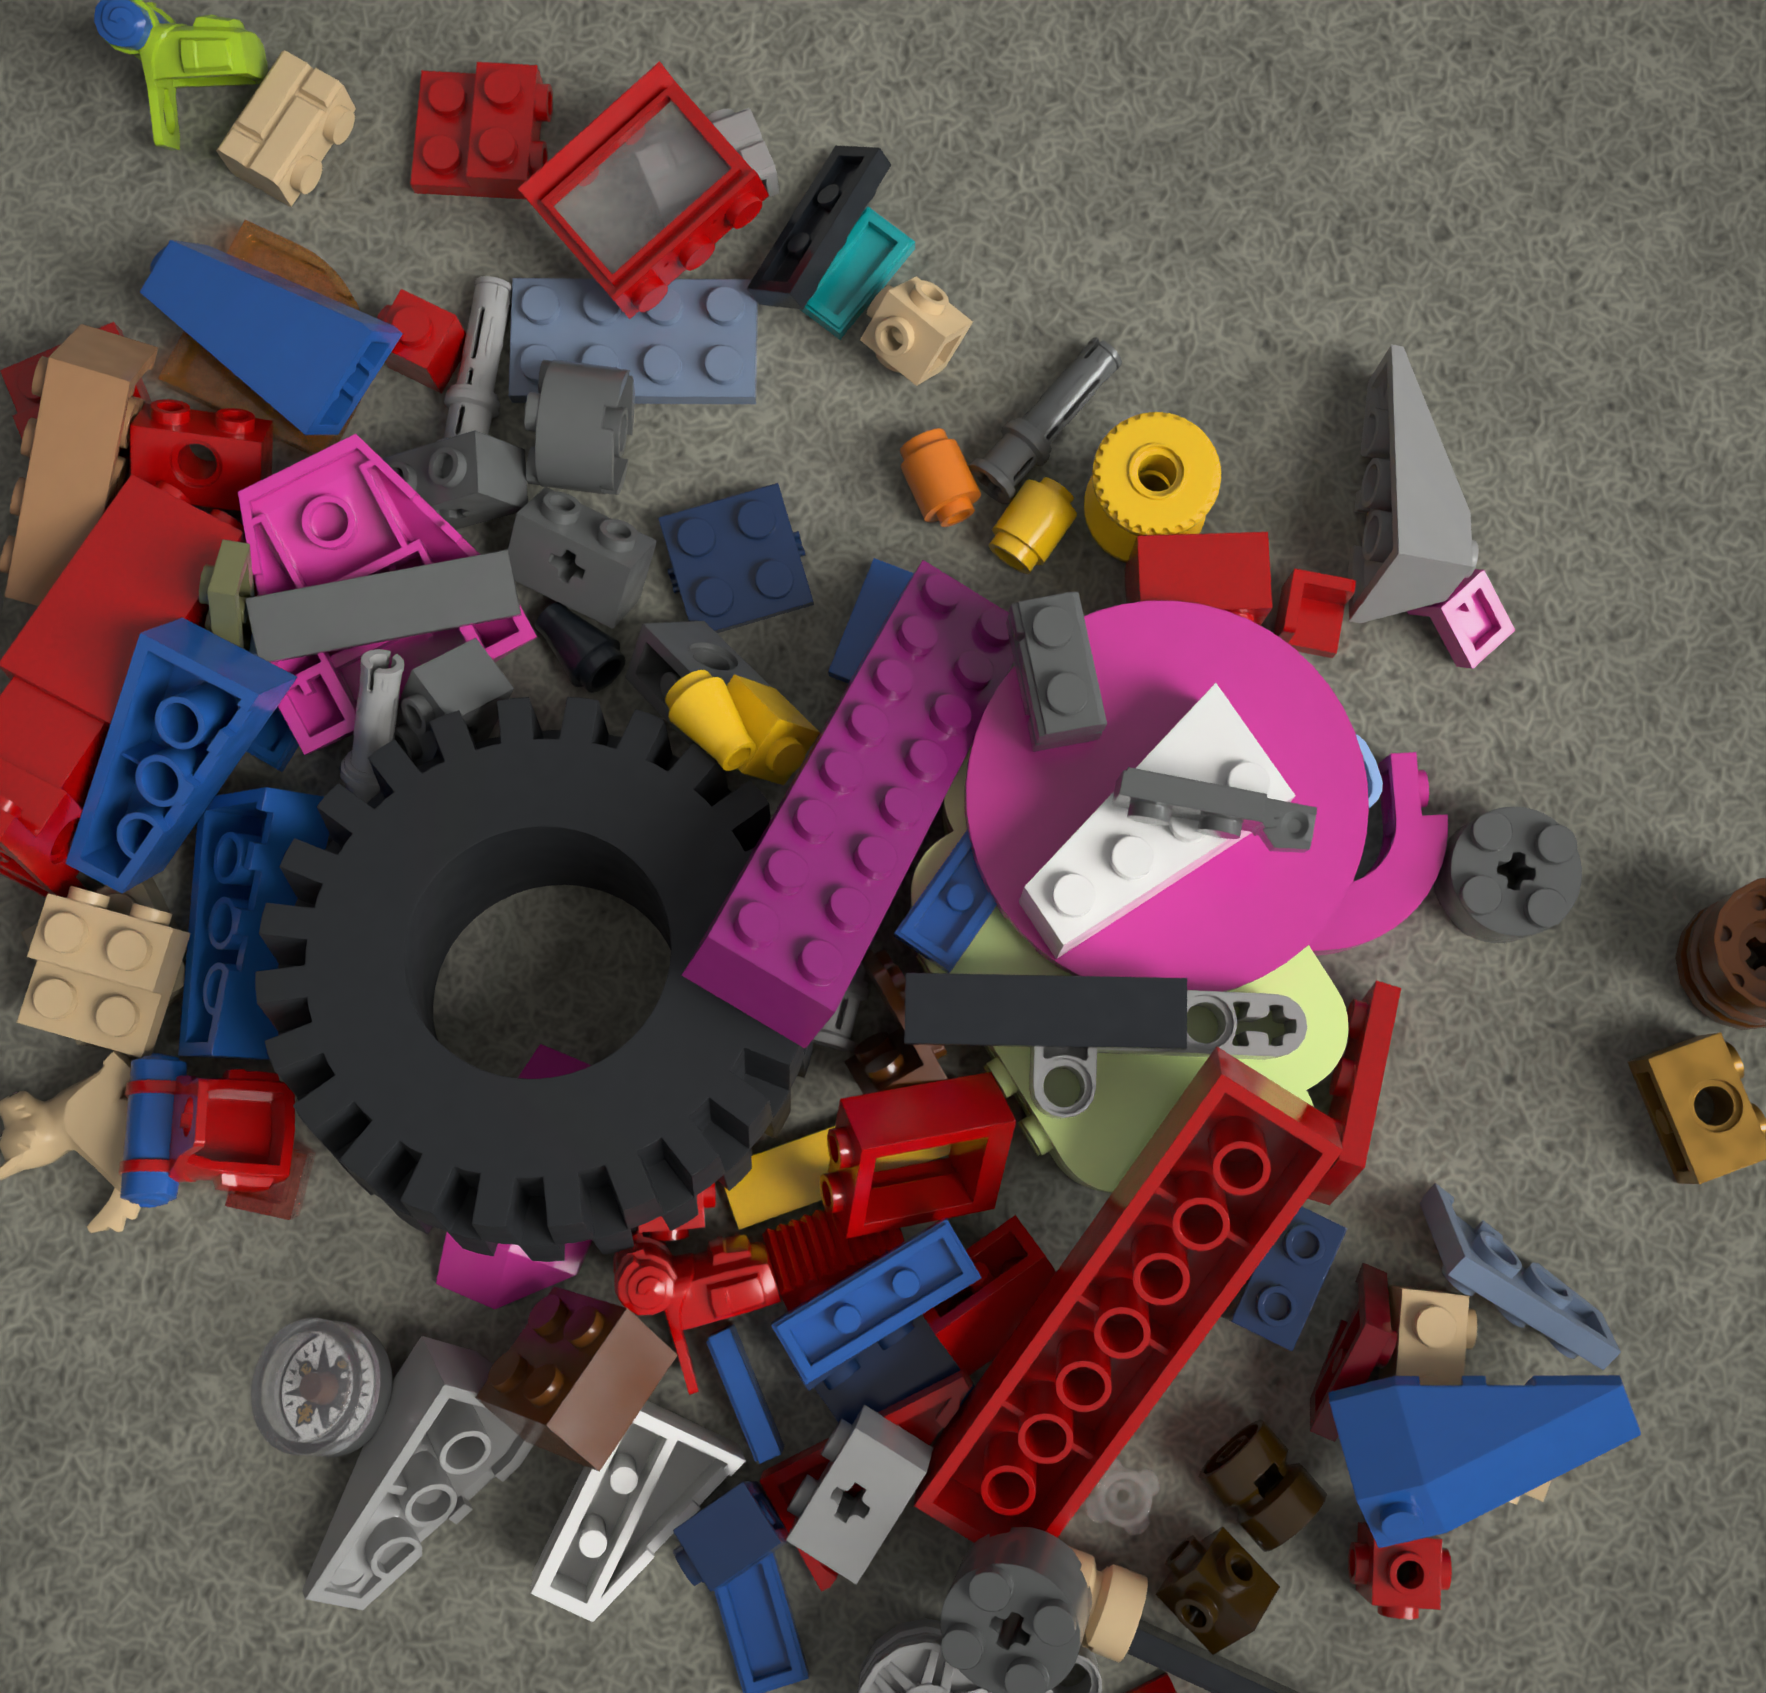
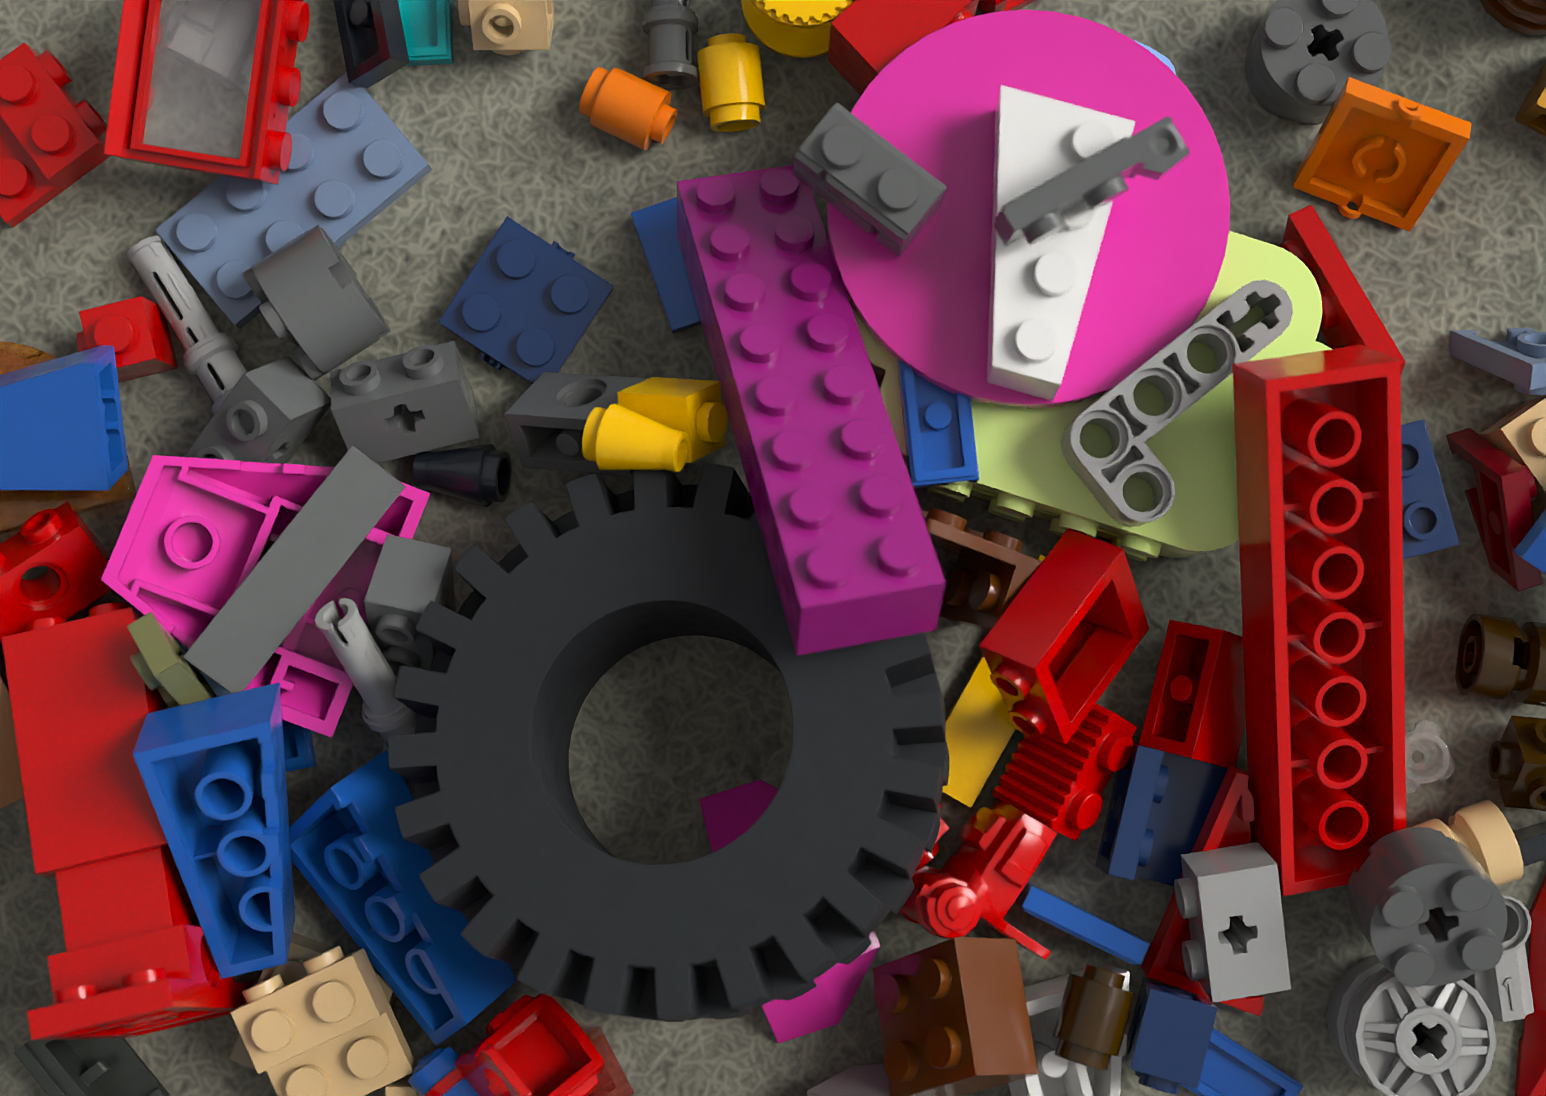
camera: 40 degrees left, 5 degrees up
(681, 1467) = (1093, 1017): none -> dark brown brick
(875, 1300) = (1127, 771): blue tile -> none
(1045, 1011) = (1084, 447): black tile -> none
(1404, 867) = (1232, 102): dark pink arch -> none
(1489, 995) = (1381, 154): none -> orange plate

